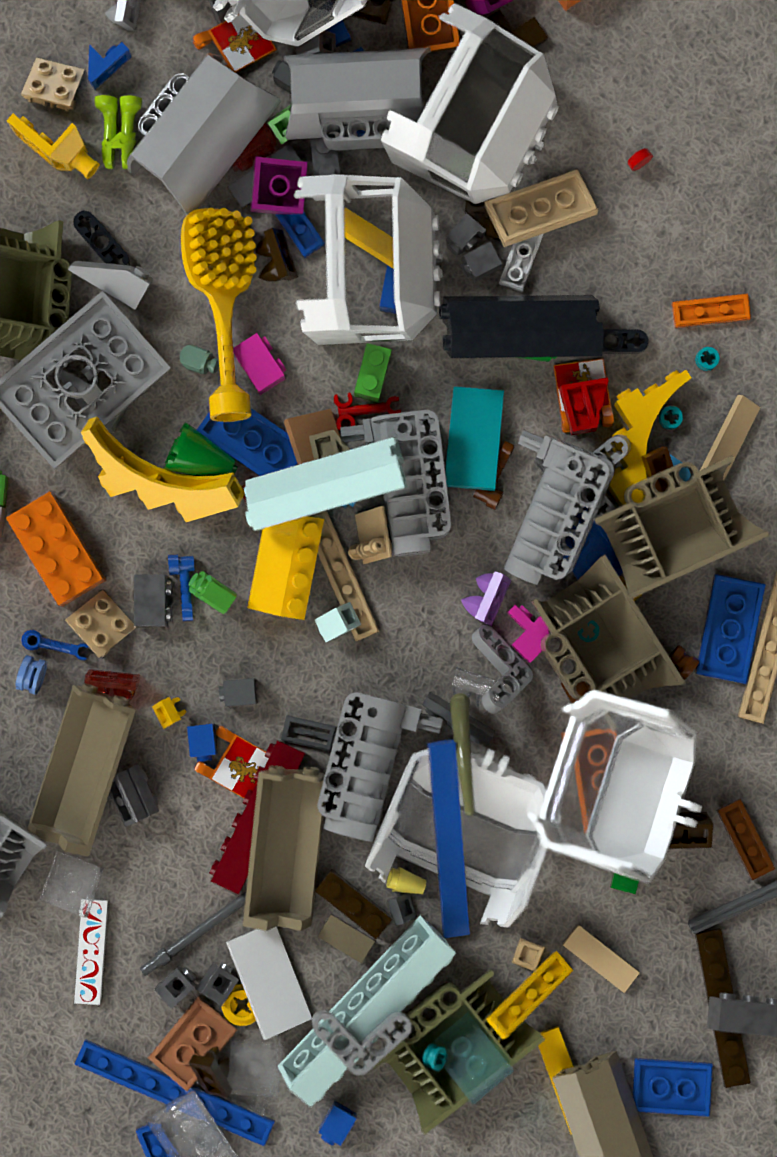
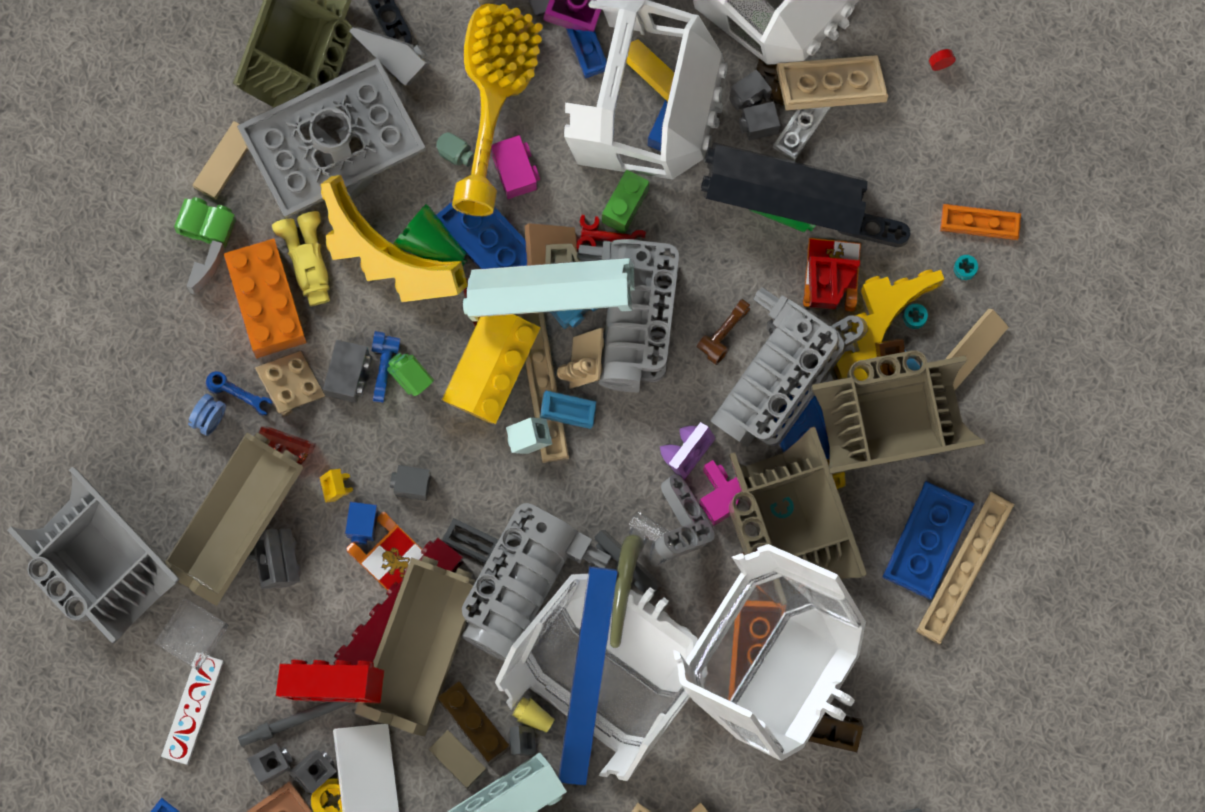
camera: 15 degrees right, 10 degrees down
(86, 501) = (306, 258): none -> light yellow piece
(212, 903) = (330, 682): none -> red brick
(282, 265) = (561, 78): dark brown tile -> none
(367, 587) = (568, 409): none -> dark azure tile
(474, 438) = (711, 289): teal tile -> none
(624, 883) = (761, 767): green plate -> none
(684, 663) = (872, 561): reddish brown wheel -> none
(745, 839) = (895, 756): reddish brown plate -> none

